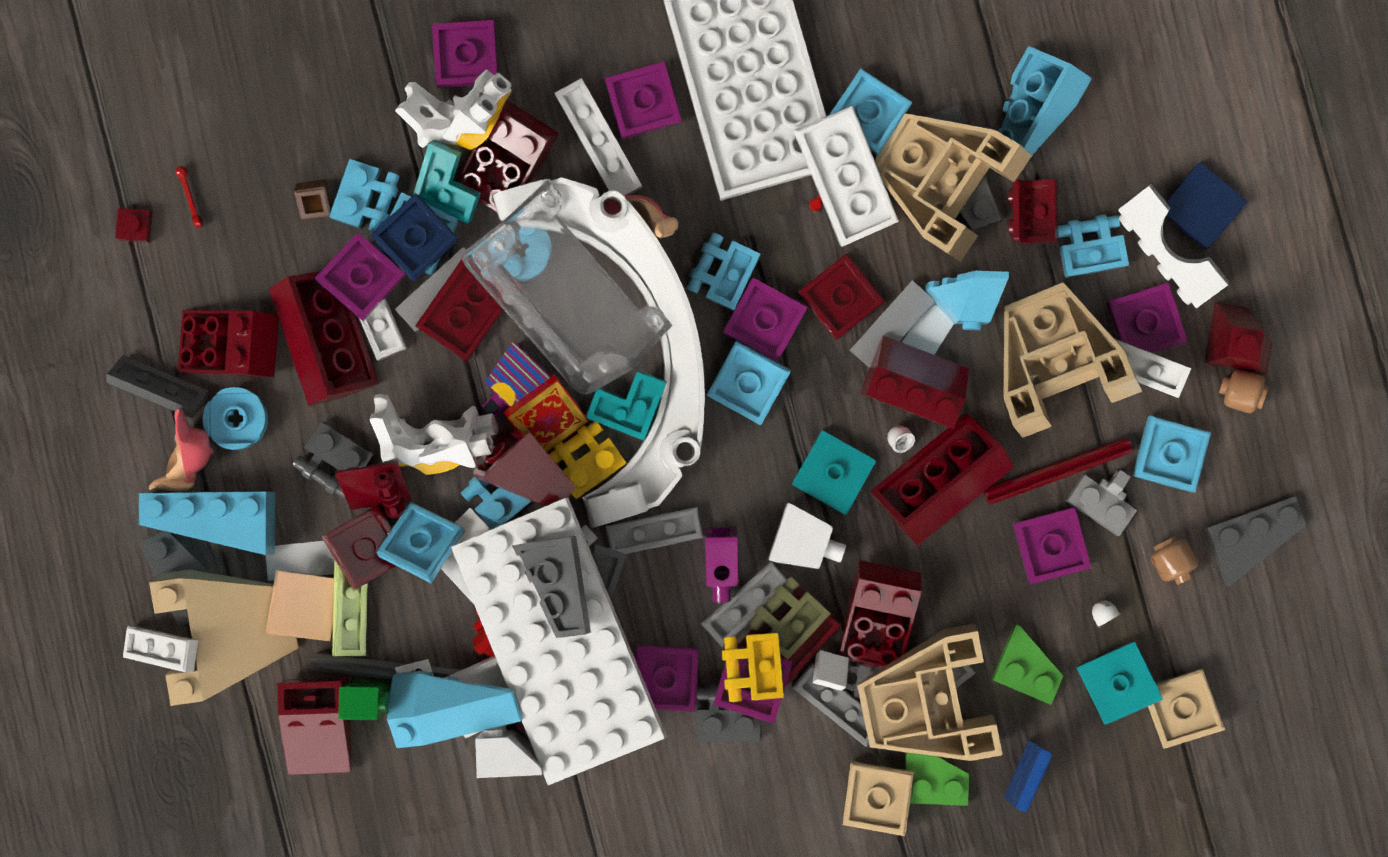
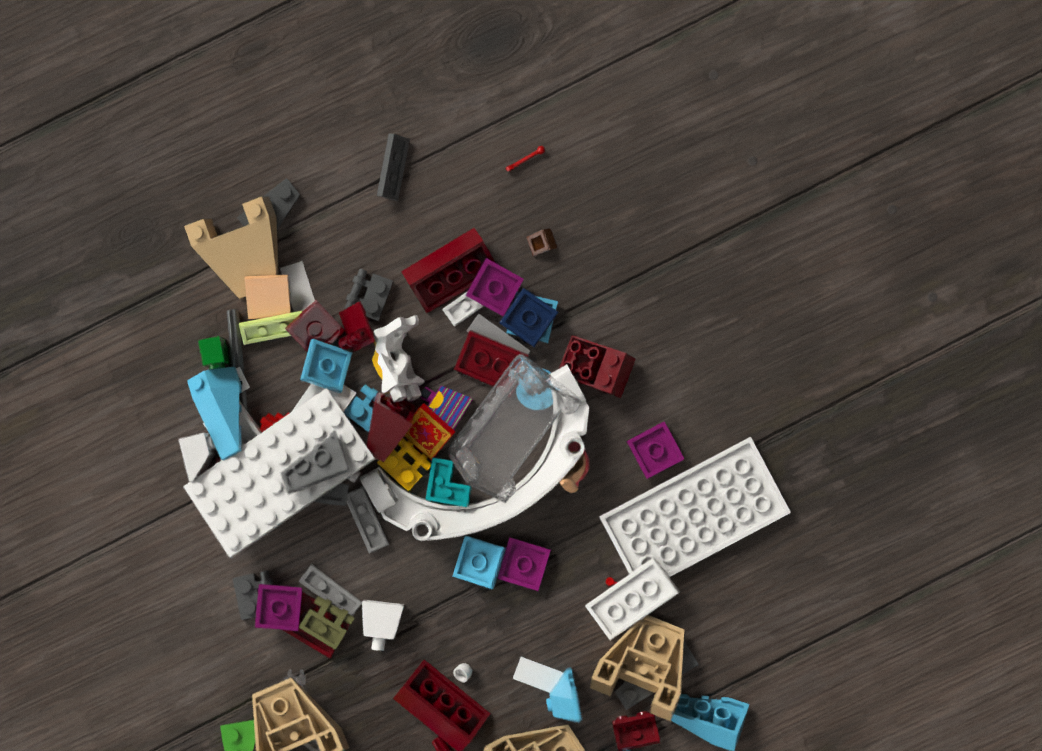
camera: 75 degrees right, 0 degrees up
(133, 225) = (498, 126): dark red plate -> none
(160, 648) = (219, 210): white tile -> none
(188, 458) = (349, 197): coral hair -> none
(223, 405) = (372, 218): medium azure plate -> none
(223, 518) = (314, 226): medium azure wedge -> none
(228, 343) = (432, 207): dark red slope -> none
(310, 726) = (190, 321): slope -> none
(356, 193) = (552, 270): medium azure plate -> none
(437, 185) = (567, 324): teal plate -> none
(459, 123) = (611, 335): white hips -> none
(463, 52) = (661, 323): magenta plate -> none
(598, 138) = (621, 425): white plate -> none
(669, 675) = (272, 550): magenta plate -> none
(721, 550) = (361, 567): magenta torso -> none
(732, 275) = (549, 535): medium azure plate -> none
(763, 663) = (291, 612): yellow plate -> none
(830, 670) = (298, 657): white tile -> none
(833, 472) = (431, 632): teal plate -> none
(834, 703) = (278, 663): light grey tile -> none
(841, 296) = (551, 612): dark red tile -> none
(875, 106) = (683, 608): medium azure plate -> none
(878, 798) = (219, 707): tan plate -> none
(880, 613) = (342, 683): dark red slope -> none
(894, 321) = (538, 651): light grey tile -> none
(917, 382) = (502, 675): dark red slope -> none

